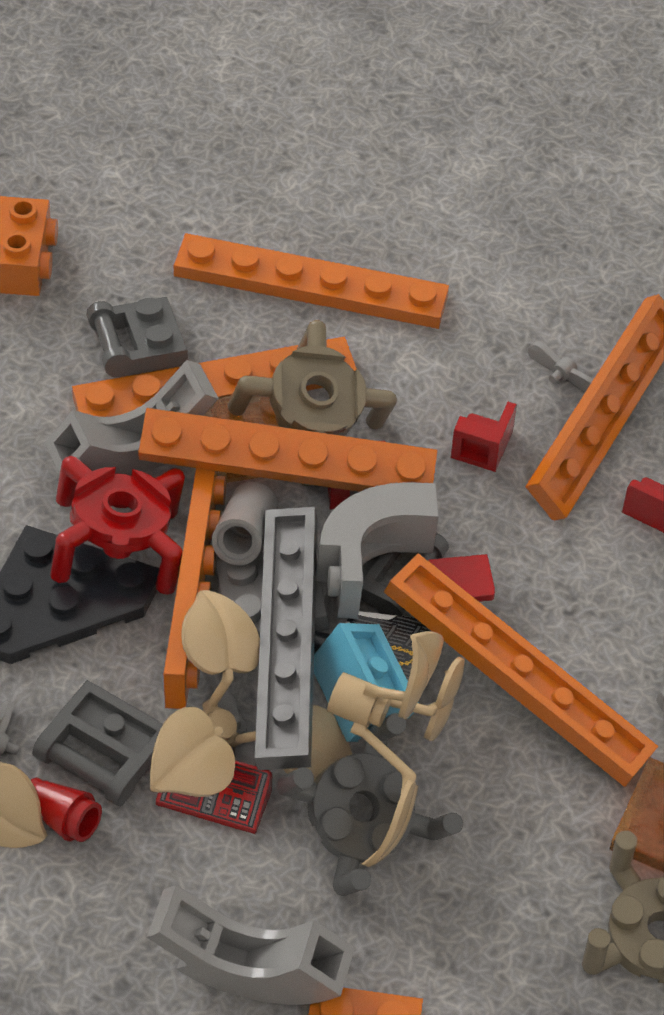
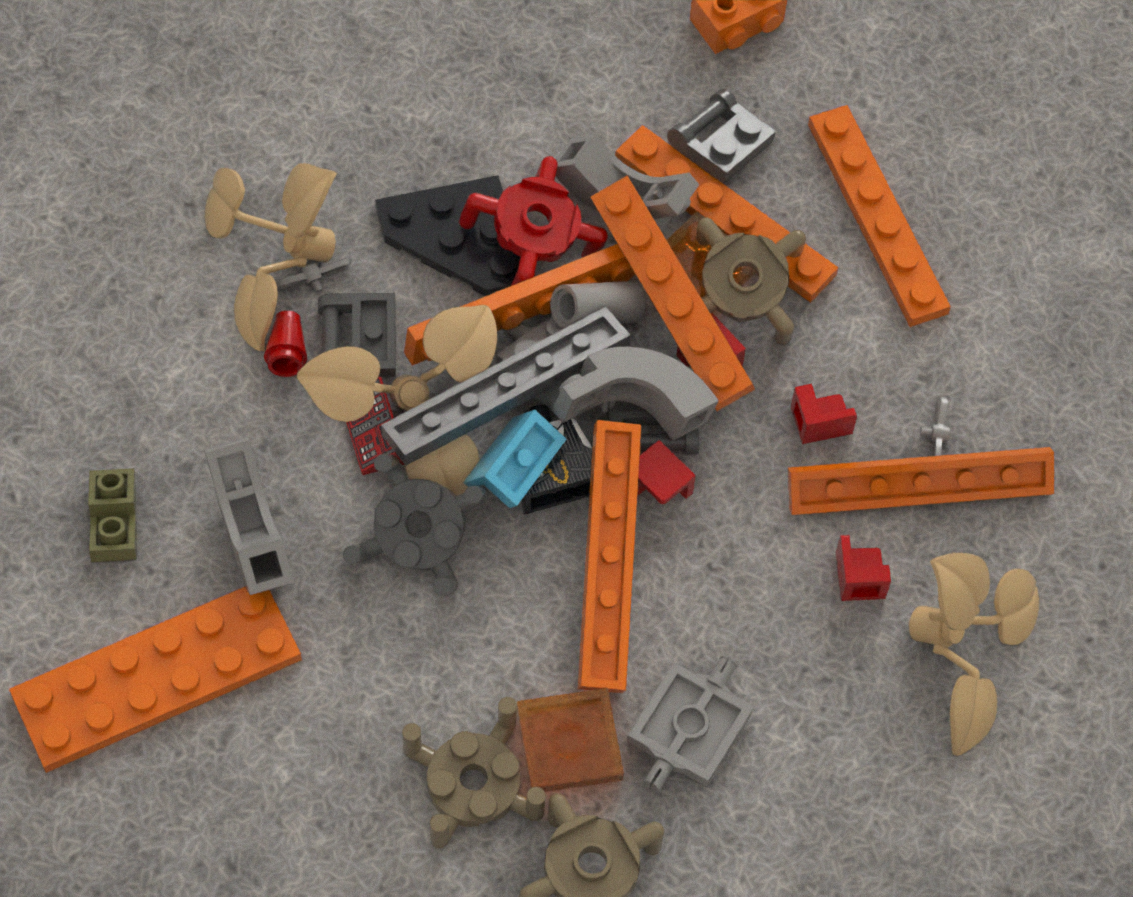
camera: 55 degrees right, 10 degrees up
(369, 704) = (470, 466): tan plant -> none

